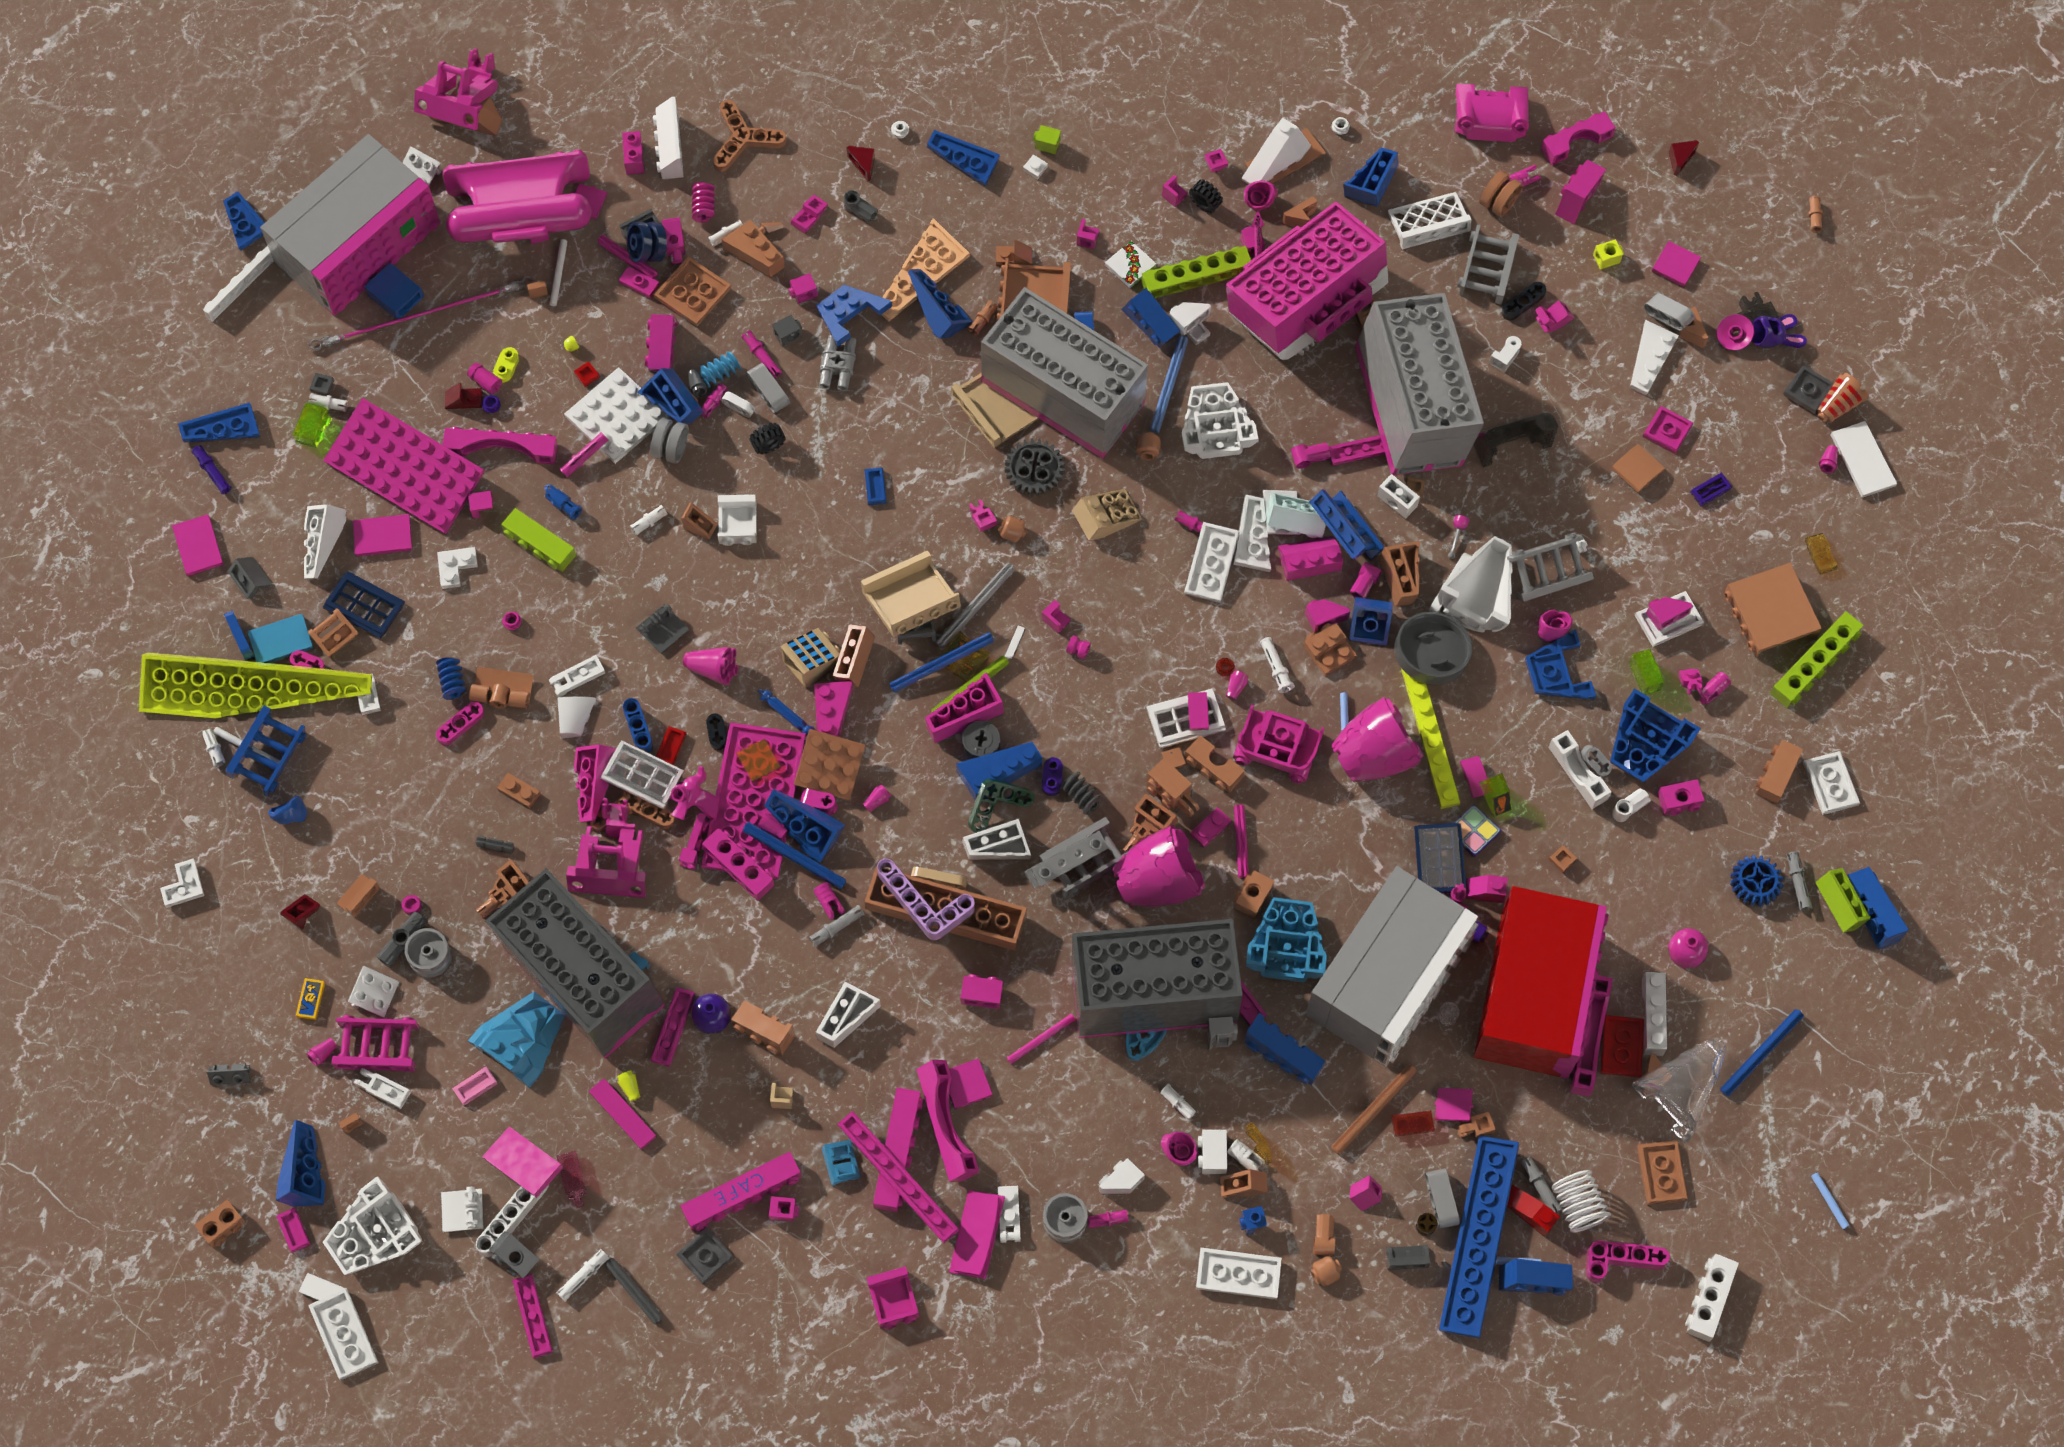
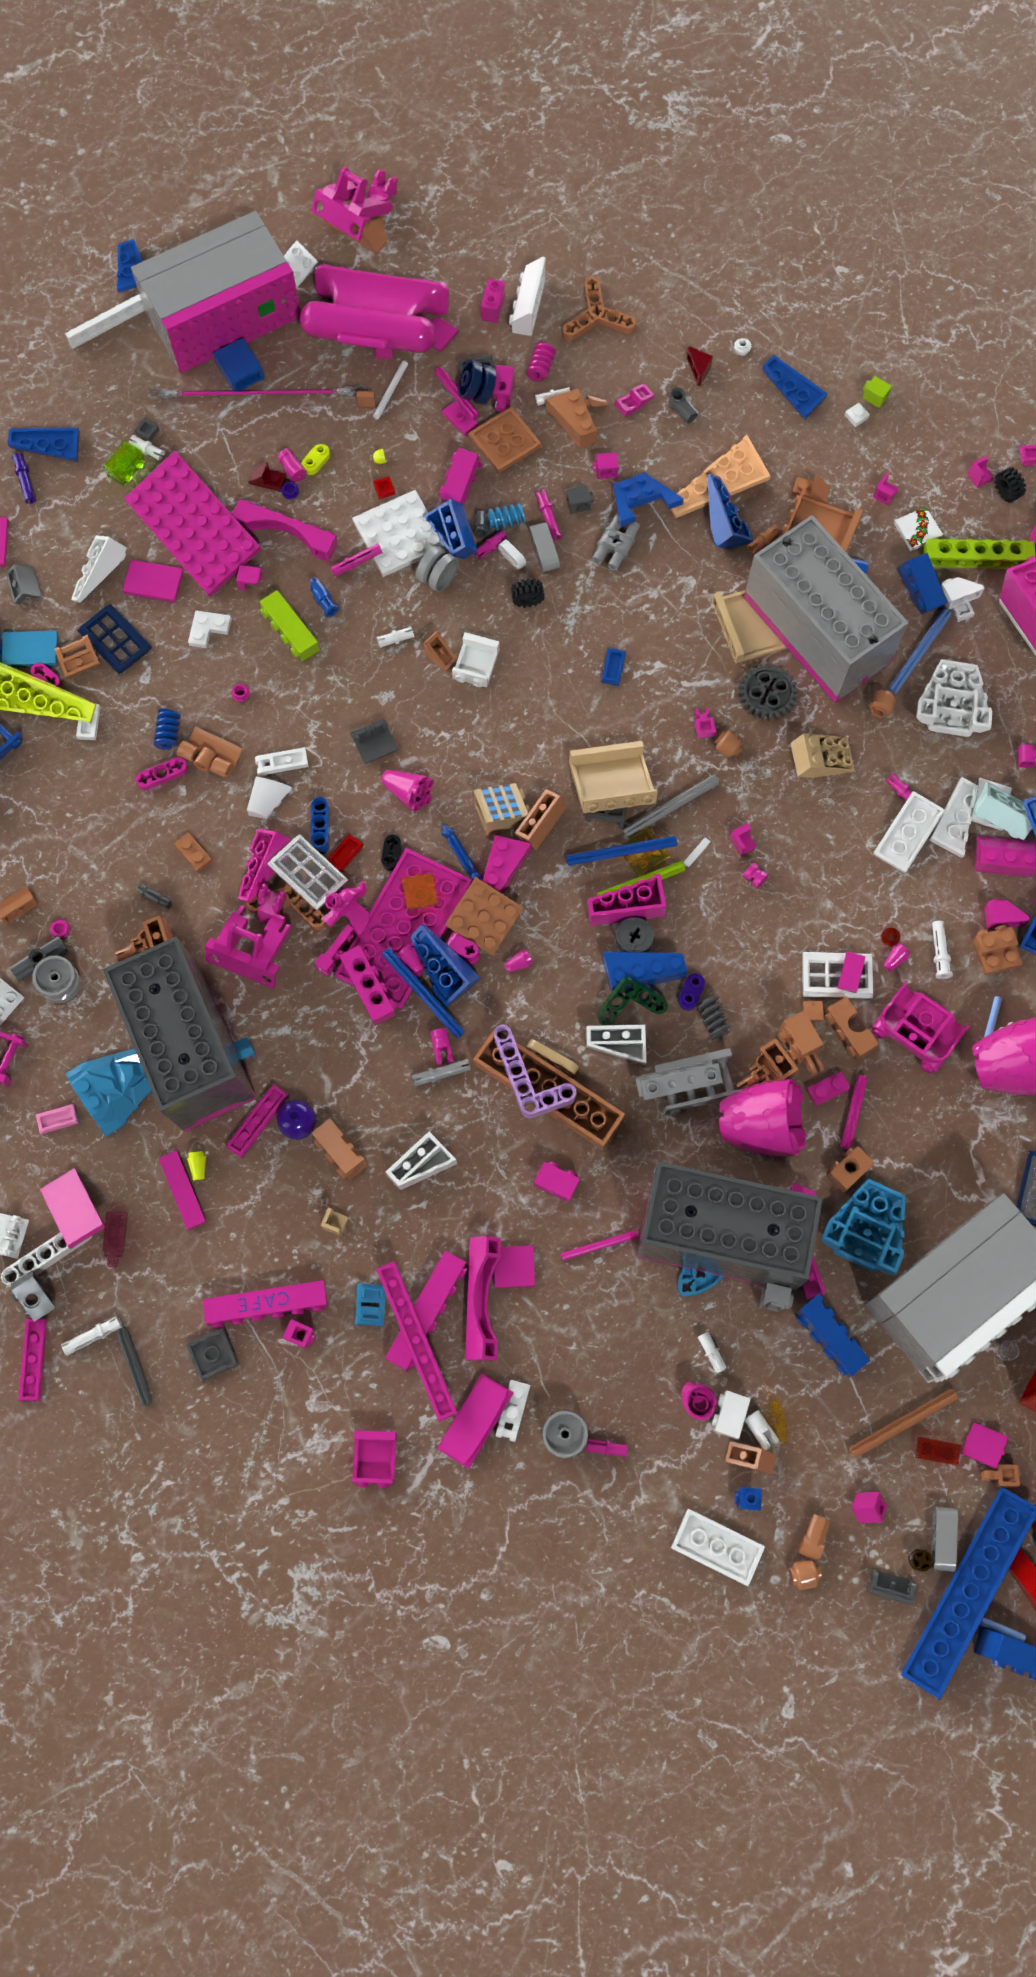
camera: 20 degrees right, 5 degrees up
(1122, 1180) = (634, 1413): white slope -> none

